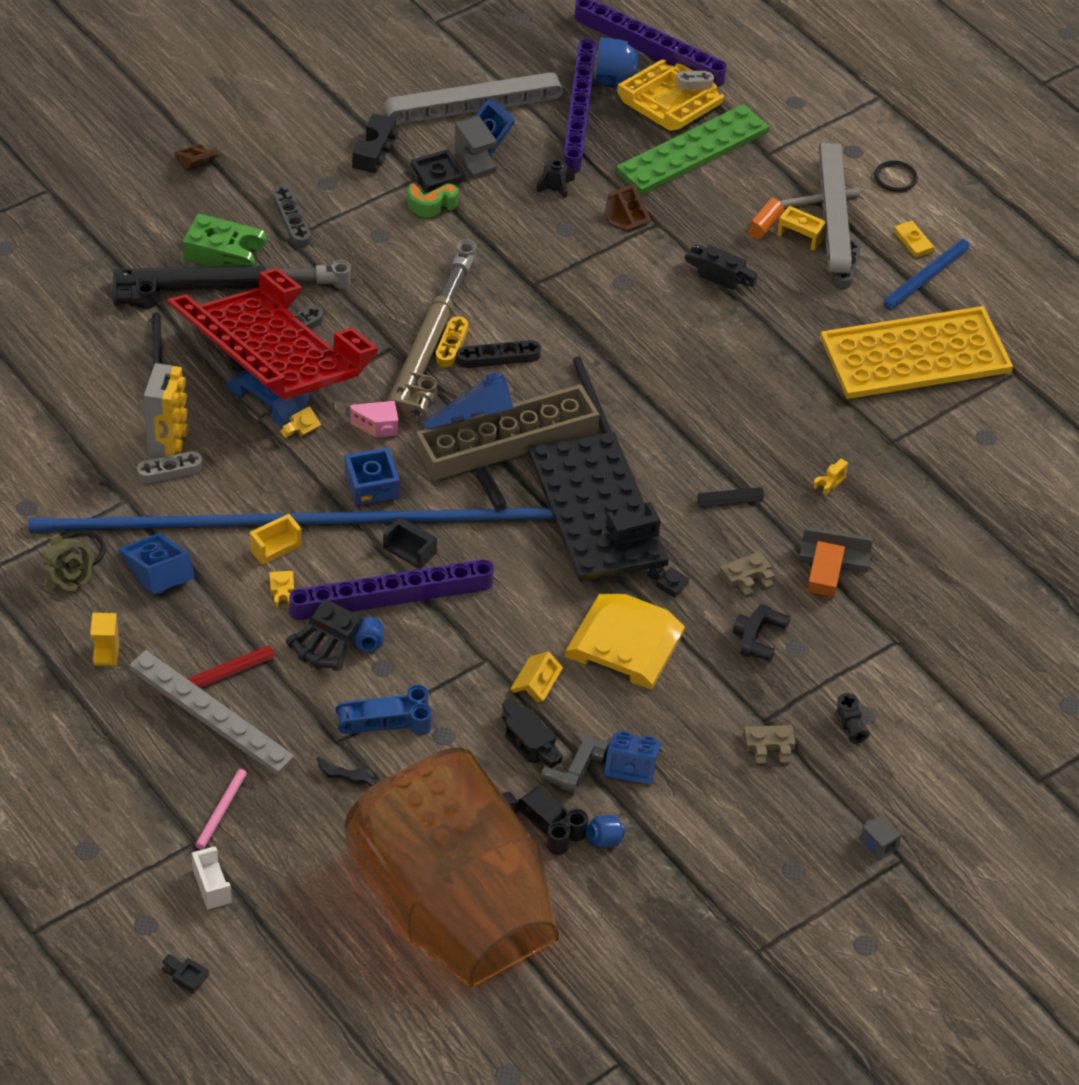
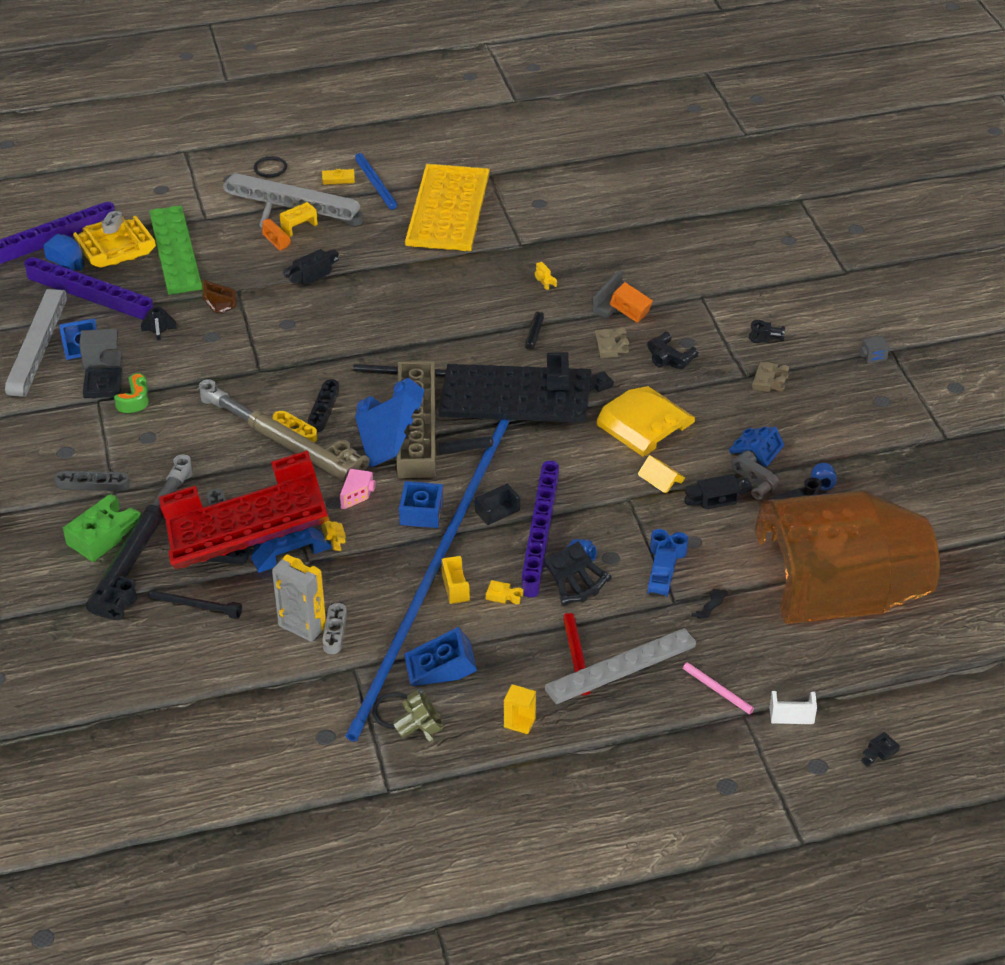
camera: 65 degrees left, 5 degrees down
(371, 153) = (55, 413): black arch -> none

